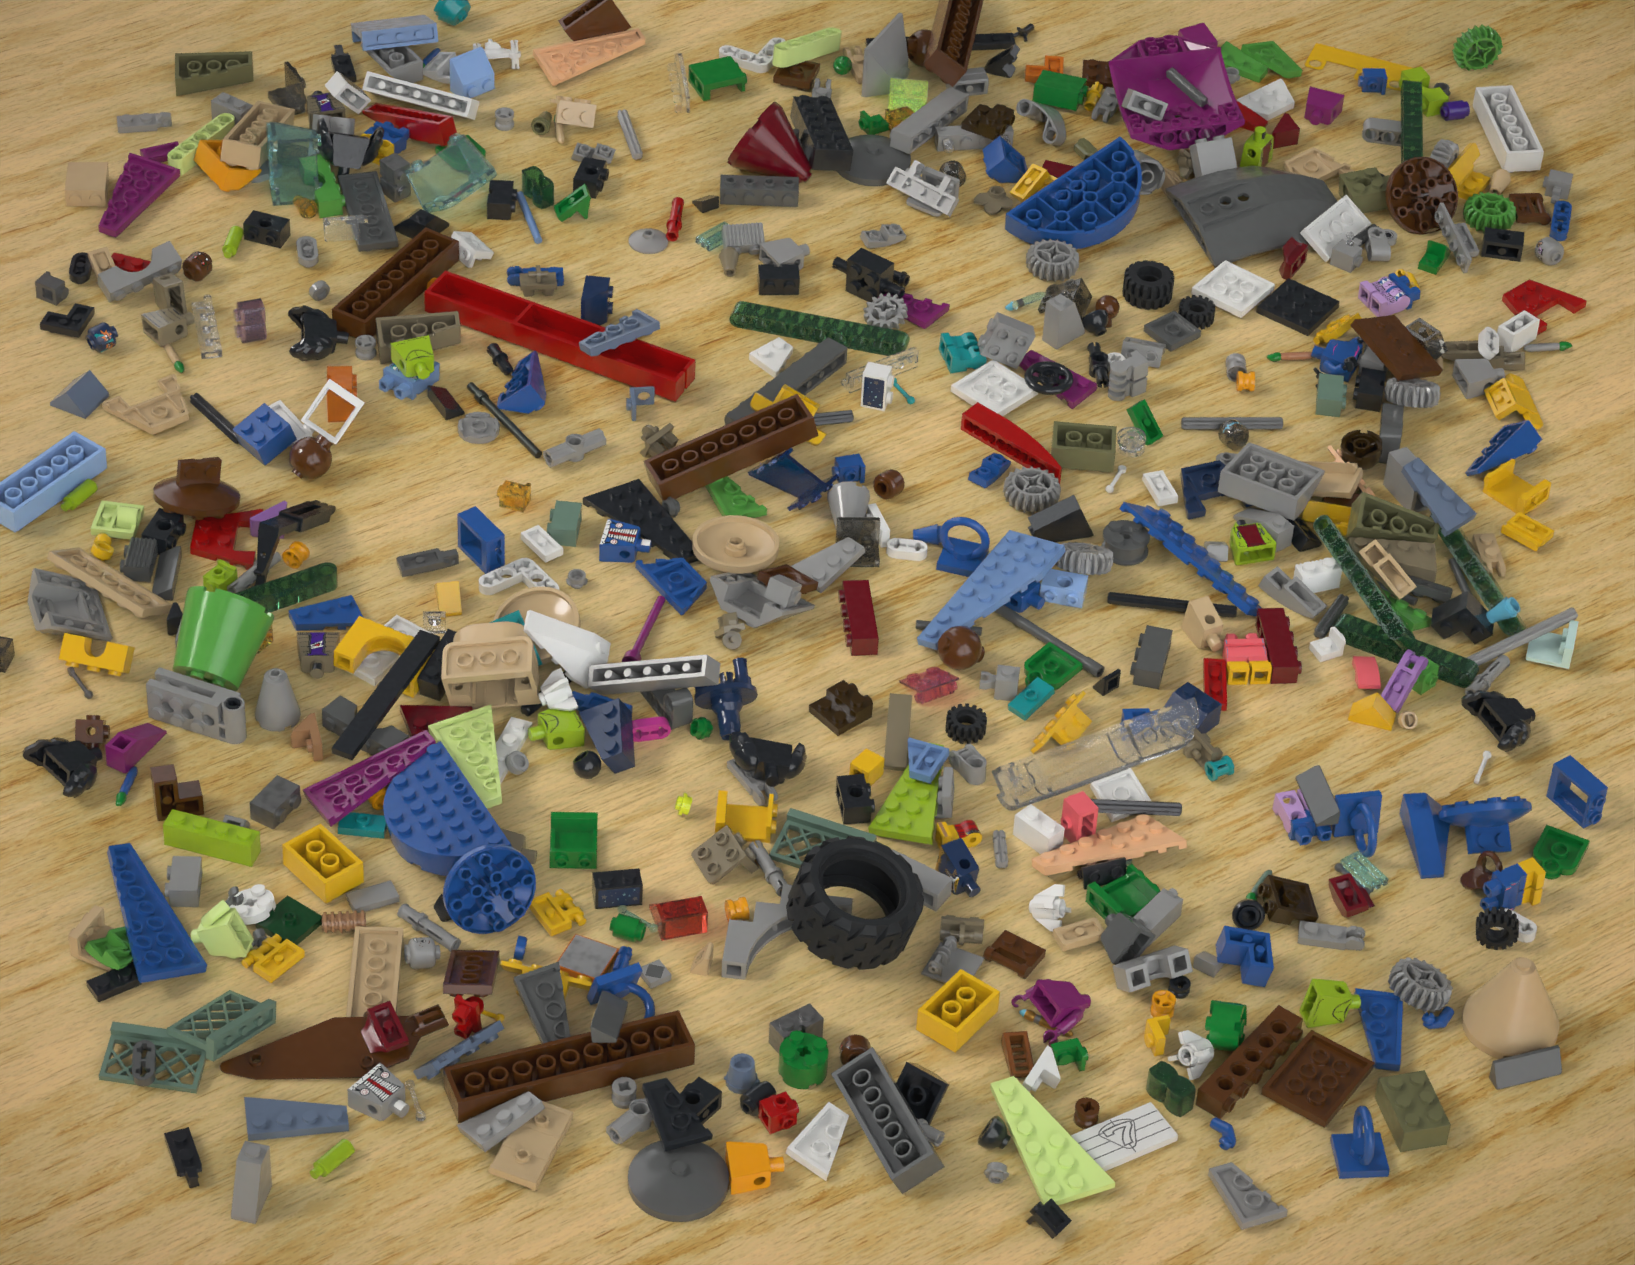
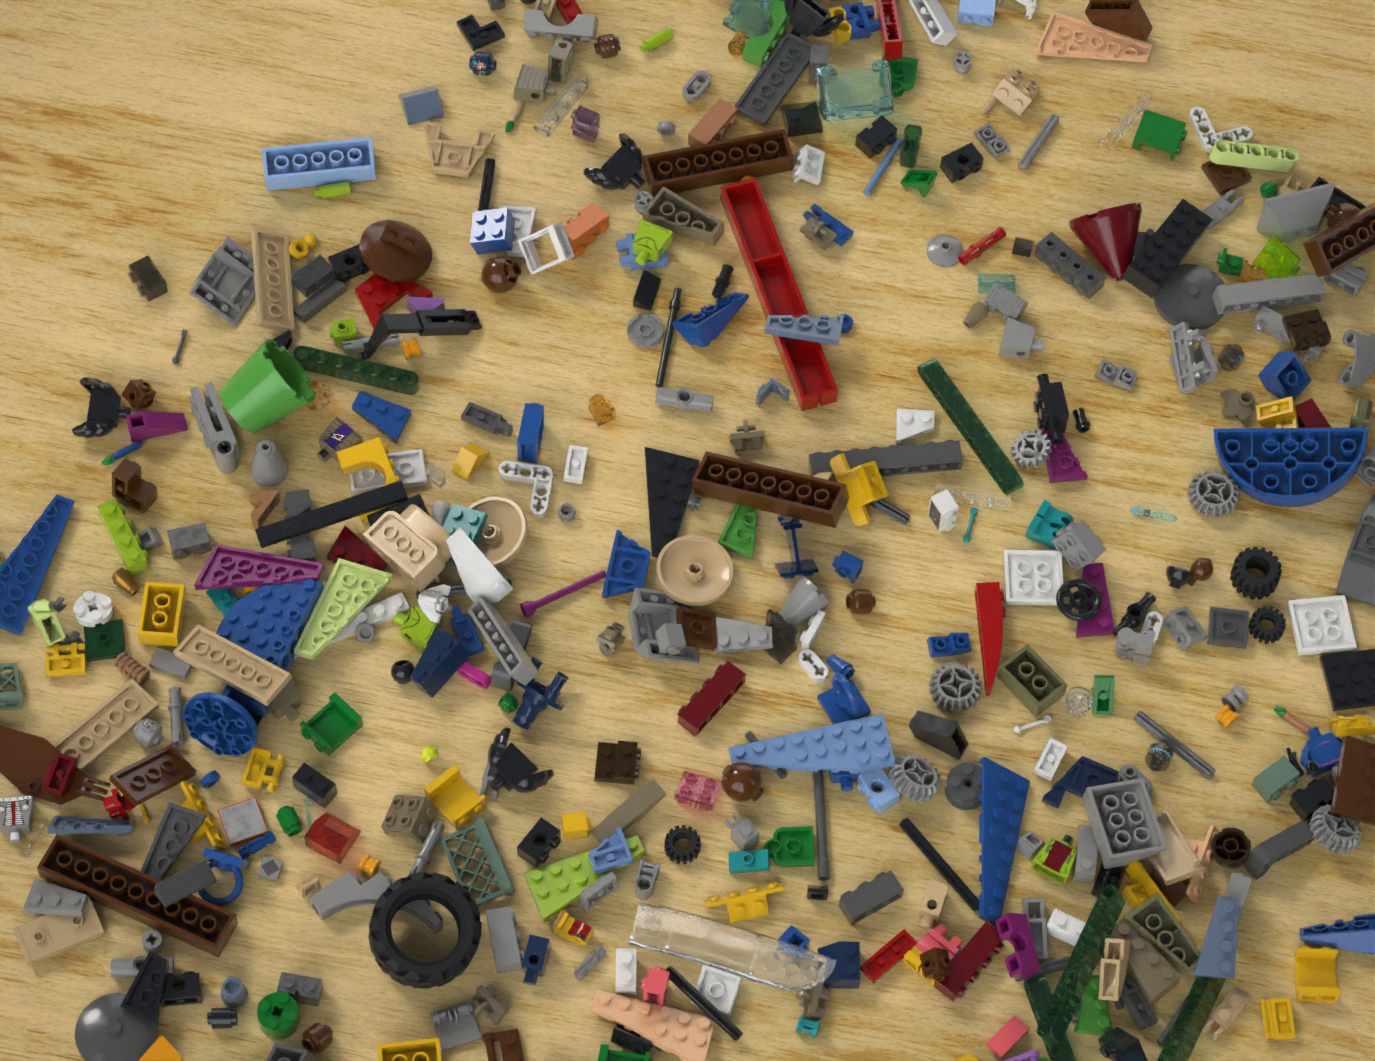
camera: 45 degrees right, 20 degrees up
(77, 651) = (196, 324): yellow arch -> none
(117, 519) = (334, 230): yellowish green plate -> none
(185, 881) = (74, 558): light grey brick -> none
(255, 868) = (125, 581): none -> pearl gold cone
(266, 229) = (691, 55): black brick -> none
(343, 227) = (737, 81): clear panel -> none
(356, 263) = (713, 124): none -> nougat brick
(450, 834) = (232, 665): none -> tan plate
(541, 124) = (985, 85): olive cone -> none
(565, 522) = (607, 460): sand green brick -> none
(596, 299) = (830, 283): dark blue slope -> none
(621, 542) = (626, 506): blue torso -> none
(778, 280) = (989, 359): black brick -> none
(778, 1112) = (220, 1040): red brick -> none
(1048, 907) = (562, 1038): white brick -> none
(1061, 322) = (1145, 558): light grey slope -> none
(1073, 290) = (1183, 538): clear smoke bracket -> none
(1265, 650) = (936, 964): none -> reddish brown brick
(1311, 606) = (1016, 930): none -> magenta arch
(1328, 647) = (1007, 992): white bracket -> none

